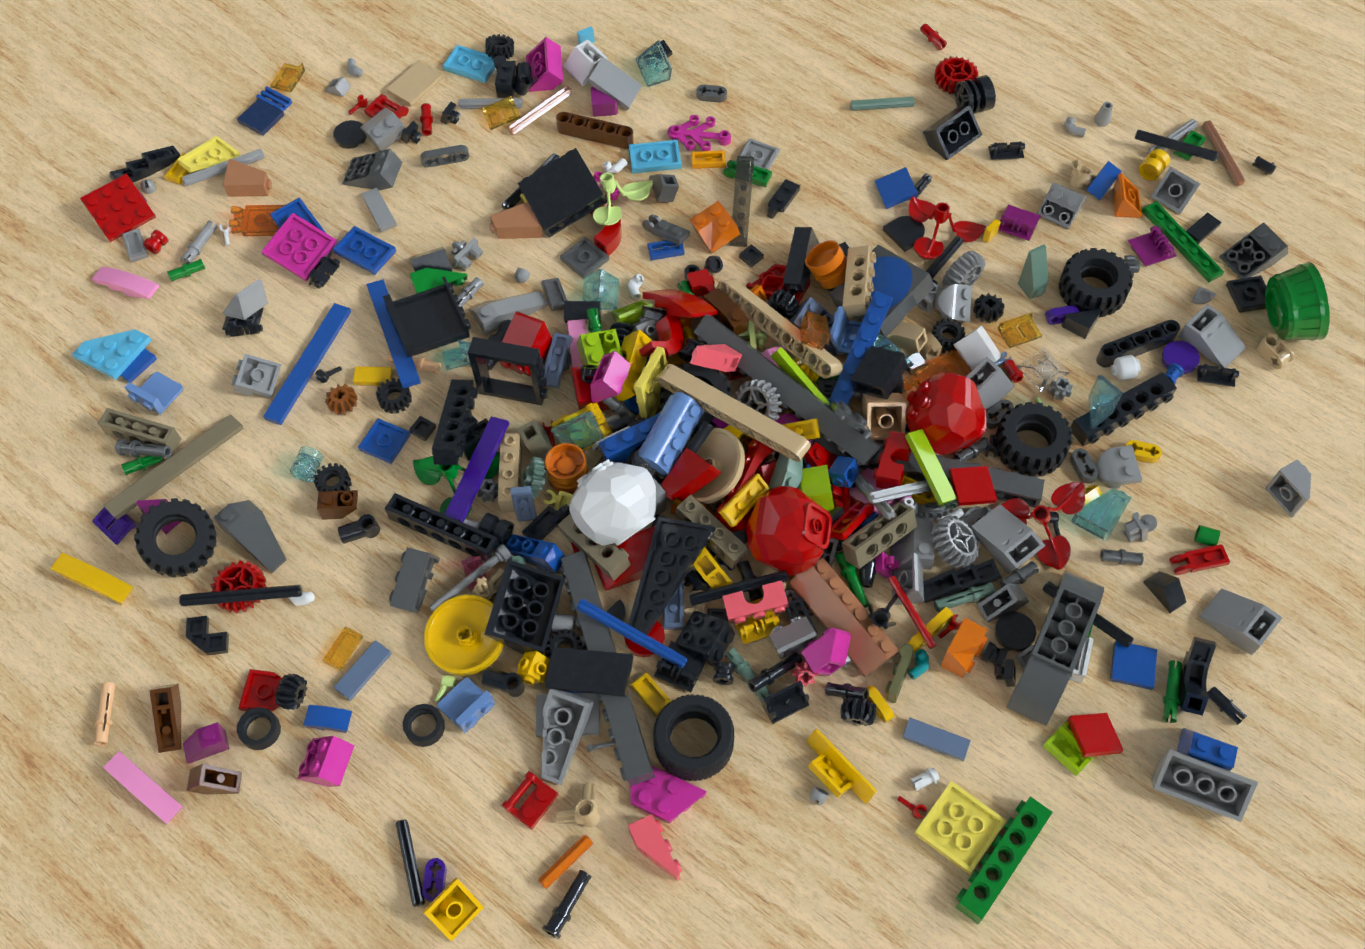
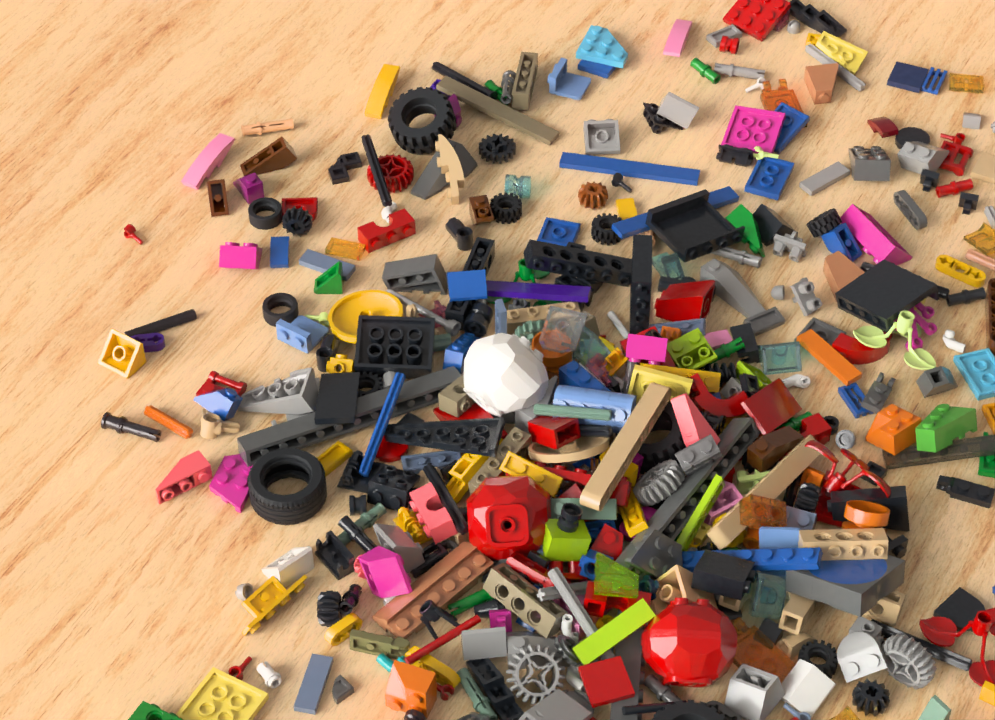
camera: 80 degrees right, 15 degrees down
(107, 494) = (446, 71): none -> black axle
(236, 475) = (497, 148): none -> black gear
(237, 893) = (130, 232): none -> red hand
(256, 518) = (450, 167): none -> tan slope
(324, 148) = (883, 126): none -> dark red slope
(335, 248) = (762, 154): none -> yellowish green hand
(336, 616) = (376, 237): none -> red arch
(394, 667) = (330, 281): none -> green slope
(455, 221) = (824, 222): none -> black tyre
(457, 525) = (467, 285): none -> blue slope
(472, 214) = (842, 240): none -> blue slope
(474, 189) = (873, 237): none -> slope
(522, 151) = (949, 265): none -> yellow beam
(538, 407) = (618, 324): none -> white bar
(539, 253) = (805, 296): none -> light grey hips
(557, 799) = (220, 402): none -> slope
(563, 442) = (562, 329): none -> clear slope
(564, 143) = (966, 296): none -> black pin
(565, 366) = (670, 333): none -> orange tile
(616, 254) = (829, 357): none -> orange tile
(617, 424) = (597, 367): none -> clear pink bracket
(679, 450) = (572, 412): none -> sand green axle
(721, 187) = (943, 426): none -> bright green wedge
(751, 359) = (698, 455): none -> flat silver brick
(769, 275) = (837, 481): none -> red plant
(791, 748) = (291, 565): none -> white slope
(810, 474) = (569, 517): none -> black wheel
(878, 433) = (649, 585): none -> plate
(883, 452) = (614, 579): none -> clear neon green wing
(944, 715) = (341, 689): none -> dark grey tile
(997, 456) = (645, 708): none -> black bar

